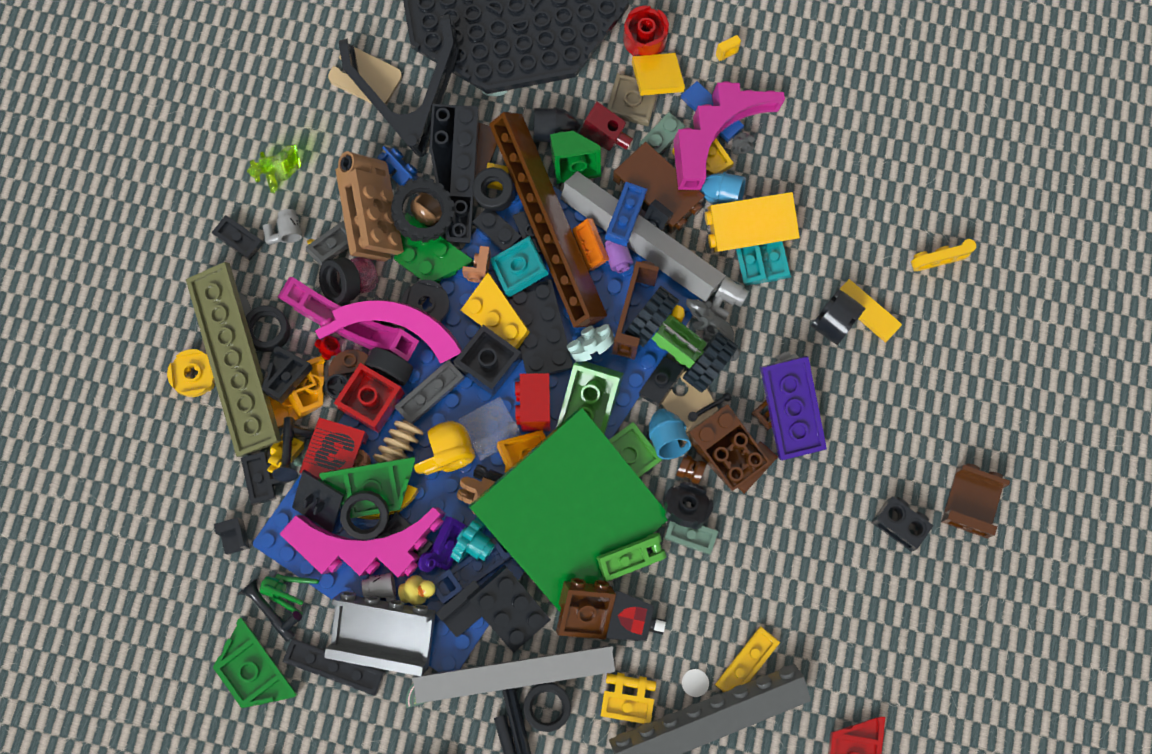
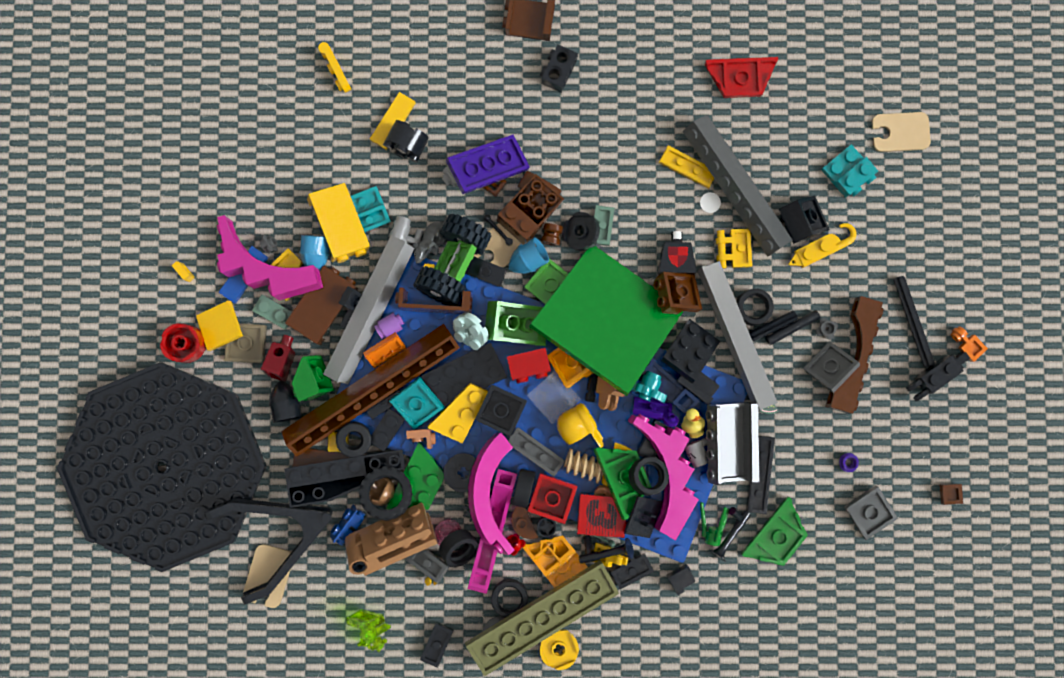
camera: 100 degrees left, 10 degrees up
(284, 374) = (547, 571): black wing -> none
(288, 228) = (420, 604): light grey piece -> none
(625, 214) = (355, 325): blue tile -> none
(631, 557) = (630, 266): bright green plate -> none

